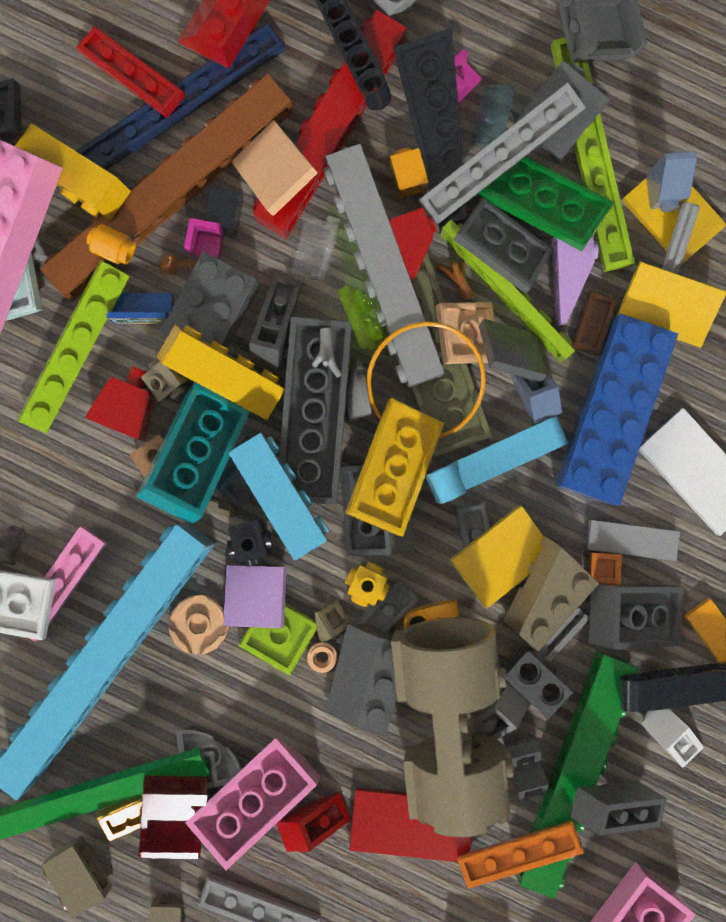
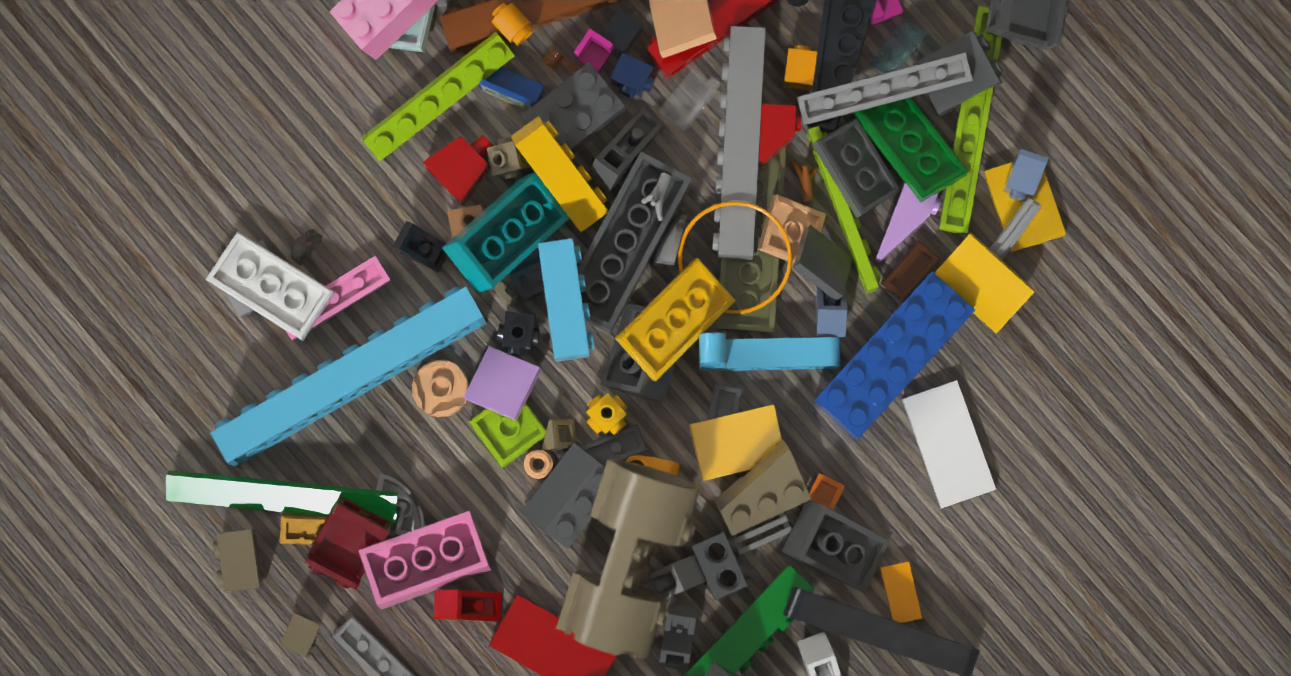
camera: 25 degrees right, 5 degrees down
(117, 499) = (420, 246): none -> black slope
(252, 248) = (632, 76): none -> dark blue brick
(358, 312) = (702, 172): clear neon green plate -> none
(632, 540) = (861, 479): light grey tile -> none

